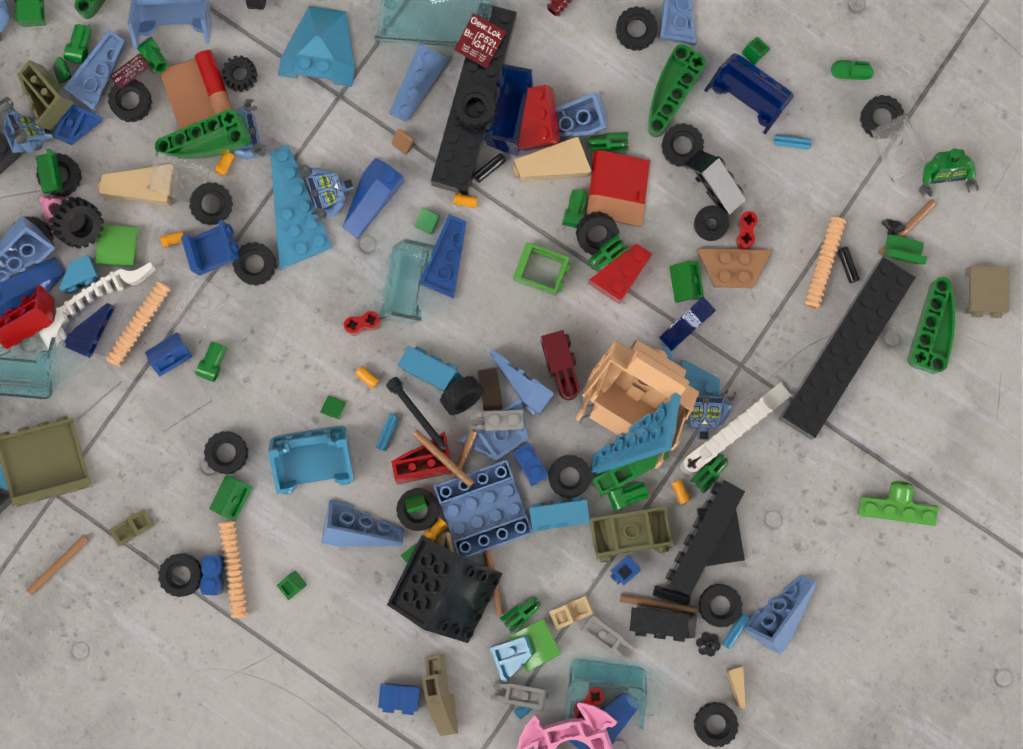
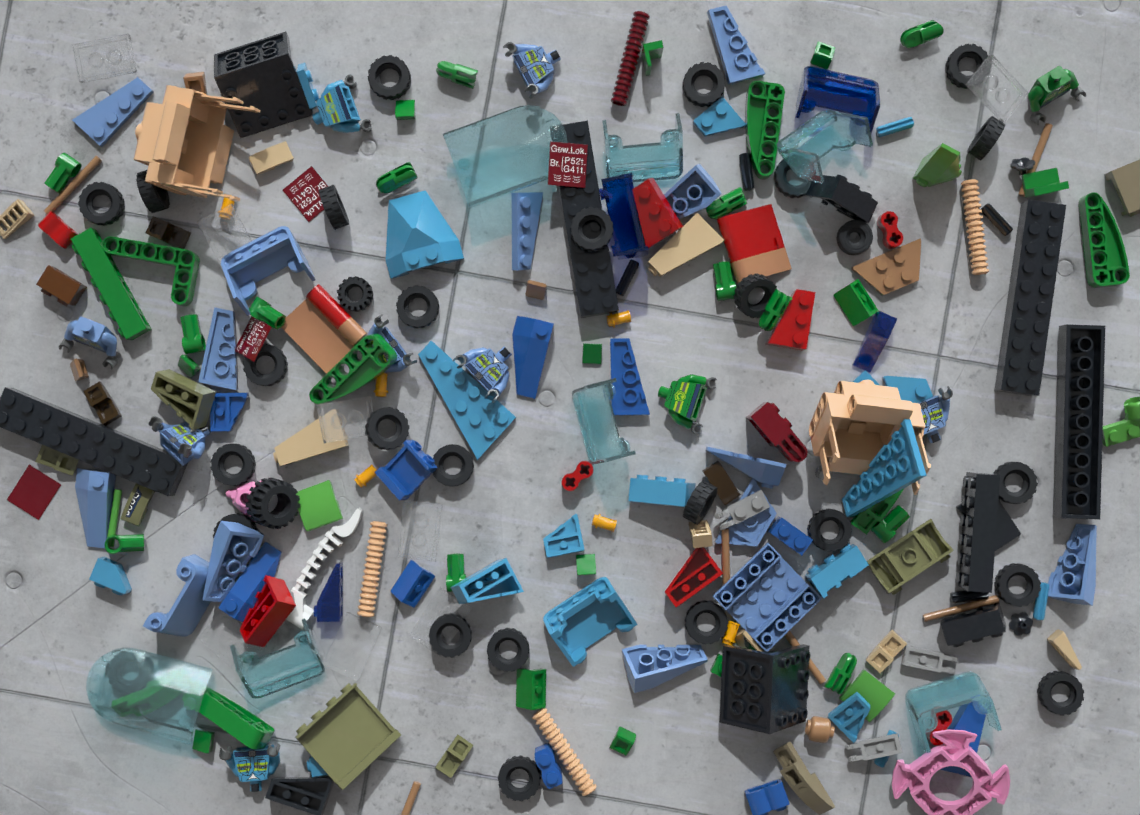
camera: 20 degrees left, 5 degrees up
(49, 172) = (224, 467): green panel -> none
(78, 274) = (296, 547): dark azure slope -> none
(164, 414) = (445, 649): none -> black tyre
(237, 382) = (488, 583): none -> dark azure wedge
(290, 95) = (417, 292): none -> black tyre
(324, 376) = (564, 539): none -> dark azure wing
(387, 432) = (645, 562): dark azure axle -> none
(395, 386) = (634, 519): black piece -> none
(415, 503) = (703, 619): green slope -> none
(443, 458) = (711, 568): medium nougat bar -> none
(448, 425) = (700, 534): none -> tan slope
(476, 655) = (819, 729): none -> medium nougat head
(492, 297) = (685, 399): none -> green torso
(518, 275) = (739, 341): bright green window -> none
(562, 75) = (648, 160): none -> clear light blue windscreen
(632, 570) = (924, 593): blue brick -> none
(636, 64) = (718, 118): none -> dark azure wing
(640, 122) = (746, 170): none -> black axle
(681, 492) = (934, 496): light orange pin -> none
(709, 473) = (955, 468): green arm -> none
(718, 120) = (818, 137): none -> clear light blue windscreen
(735, 429) = (971, 403): white piece -> none
(773, 510) = (1029, 482): none -> black tyre
(814, 192) = (939, 167): none -> bright green wedge
(842, 480) = (1079, 421): none -> black brick
(869, 185) = (986, 138): none -> black tyre

